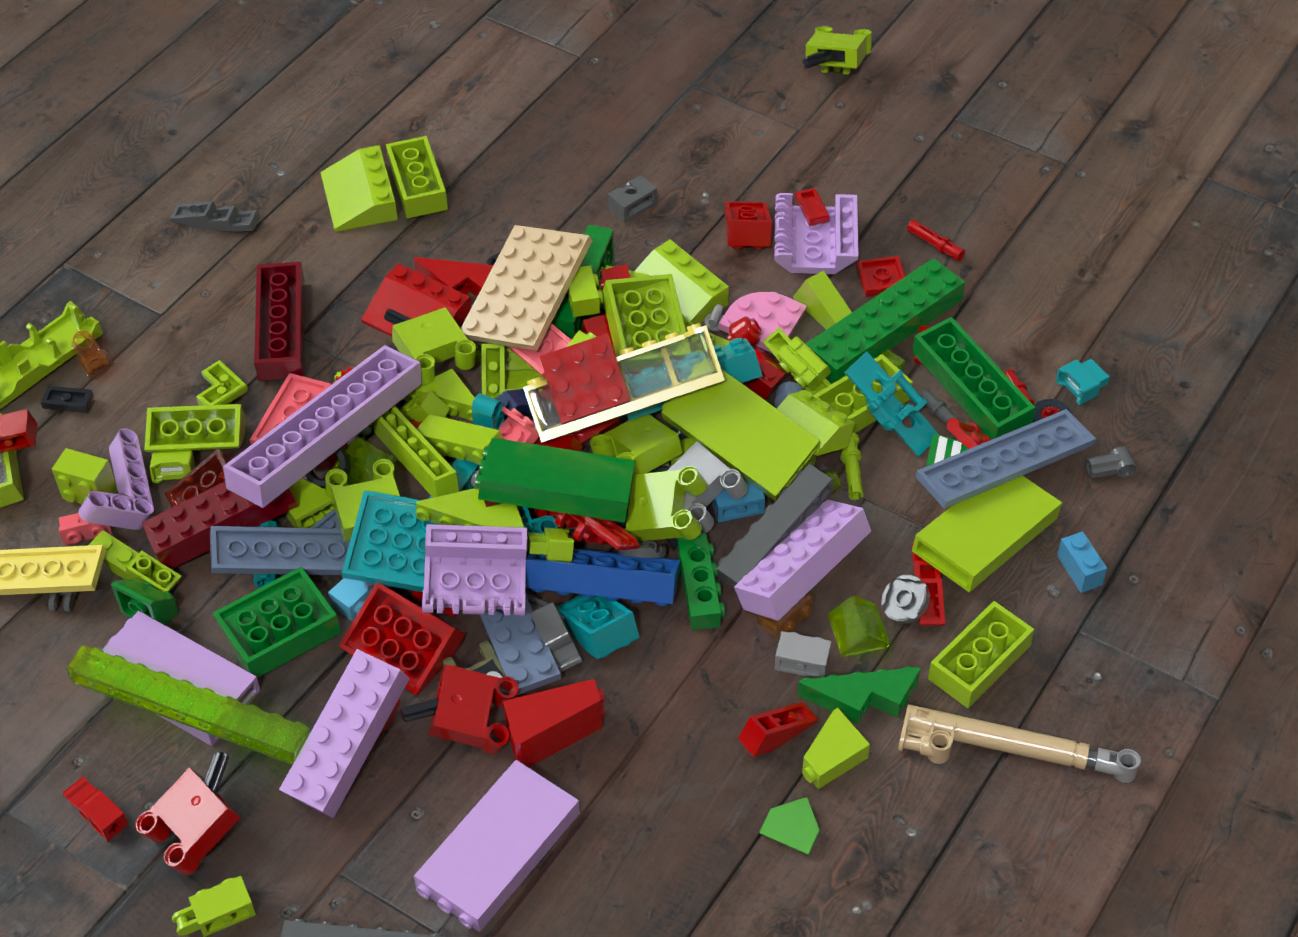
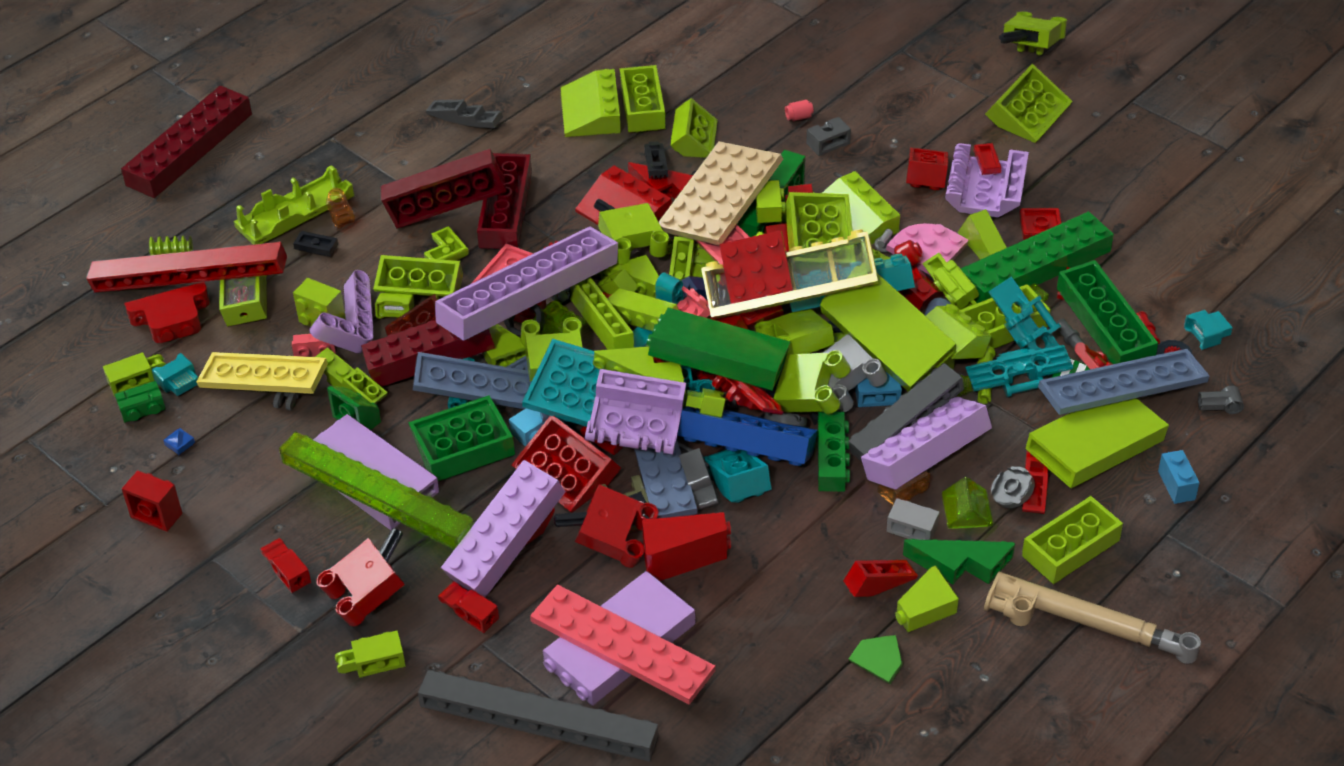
camera: 10 degrees right, 5 degrees down
(206, 317) = (443, 188): none -> dark red brick
(319, 830) = (470, 606): none -> red piece
(446, 262) = (656, 168): none -> black container
(480, 209) = (693, 130): none -> lime slope
(504, 855) = (623, 644): none -> coral plate
(594, 171) = (799, 110): none -> coral brick
(846, 137) = (1029, 105): none -> lime slope
(885, 450) = (1018, 363): none -> teal piece
(942, 244) = (1100, 203): red pin -> none

